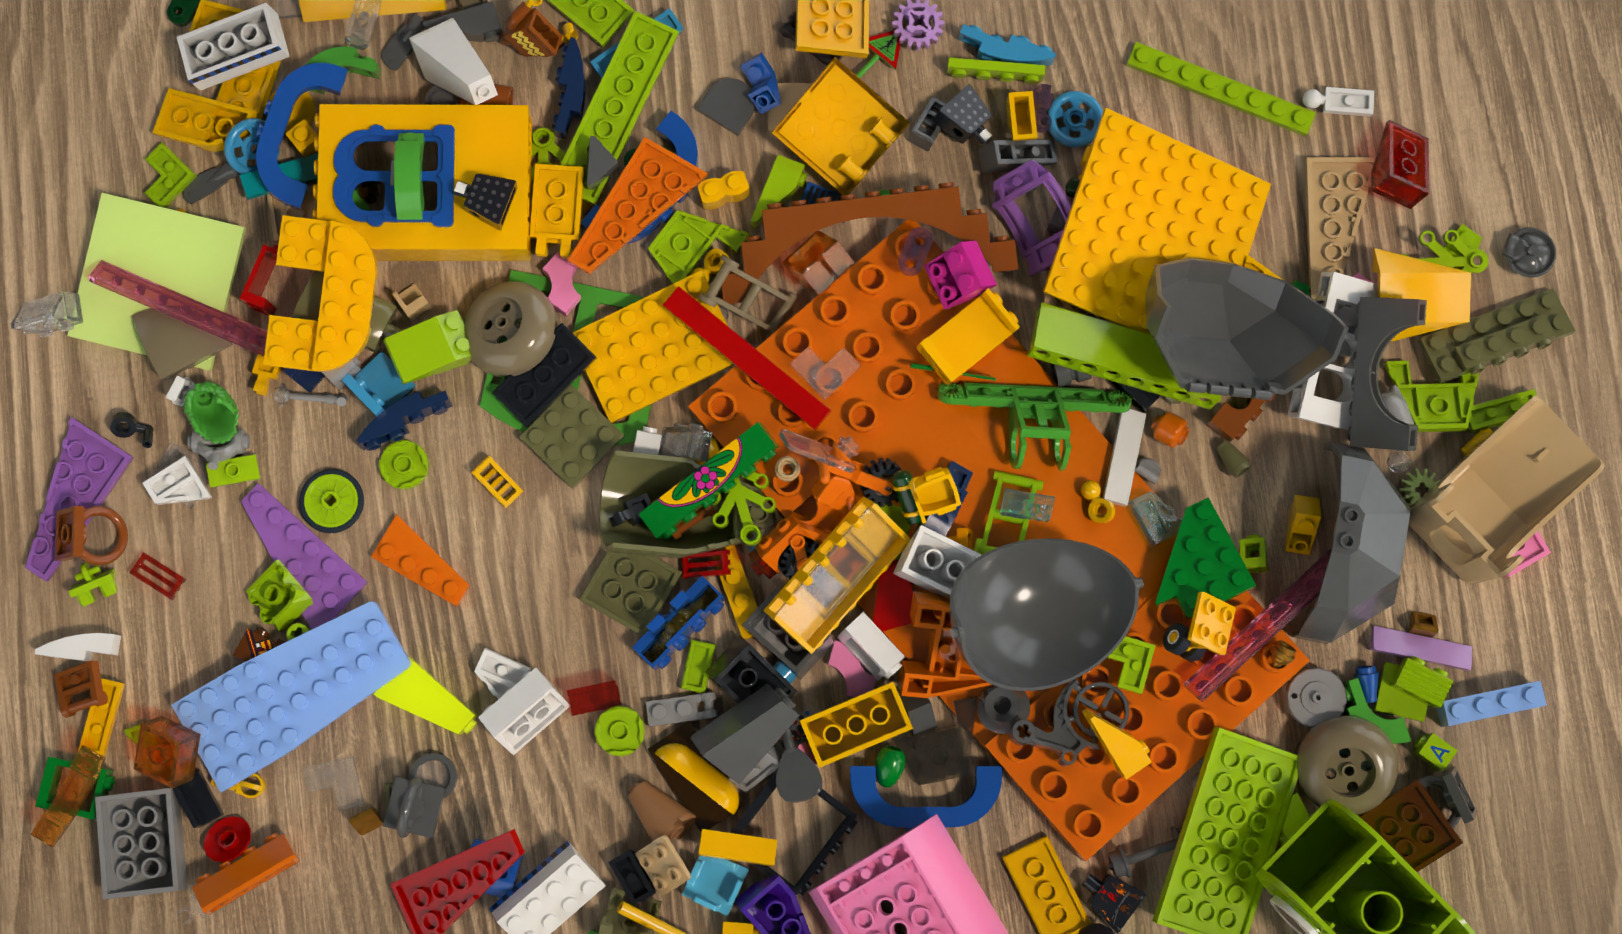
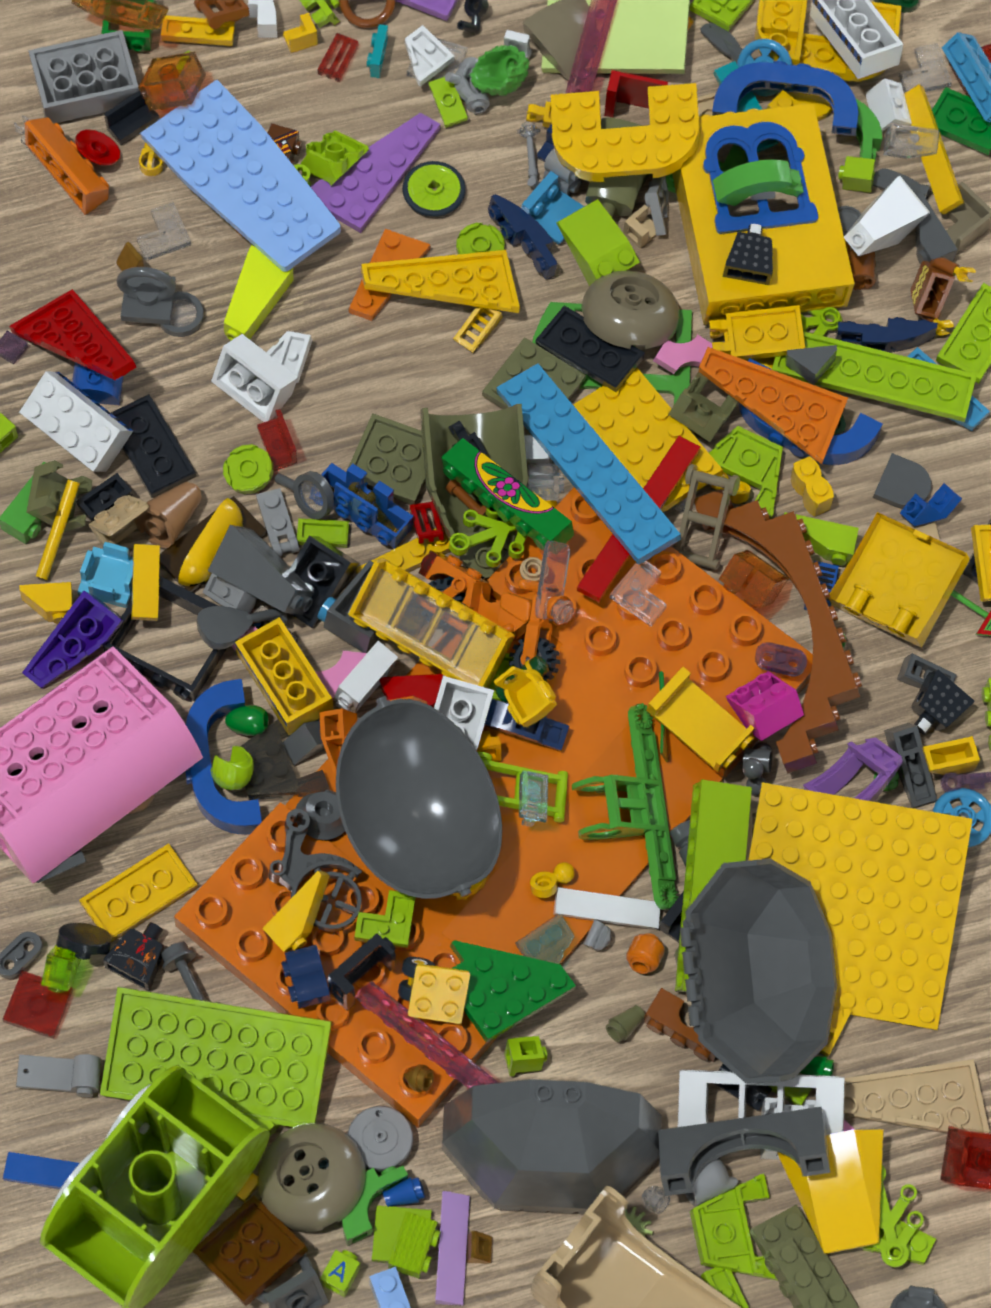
camera: 80 degrees right, 15 degrees down
(125, 610) = (302, 36): none -> yellow panel
(169, 537) = (375, 59): none -> teal plate
(313, 34) = (888, 103): none -> white panel
(388, 80) = (857, 174): none -> lime brick
(391, 281) = (657, 200): none -> light grey wing
(446, 487) = (463, 279): none -> yellow wing
(580, 821) = (153, 447): none -> black tile
(631, 279) = (699, 412): none -> olive panel
(660, 673) = (310, 492): none -> dark grey piece
(679, 397) = (589, 464): none -> dark azure plate
(946, 786) = (233, 773): none -> lime hair
(1010, 296) = (755, 762): none -> dark grey piece
(1174, 744) = (307, 977): none -> dark blue brick
(1175, 695) = (357, 965): none -> black panel

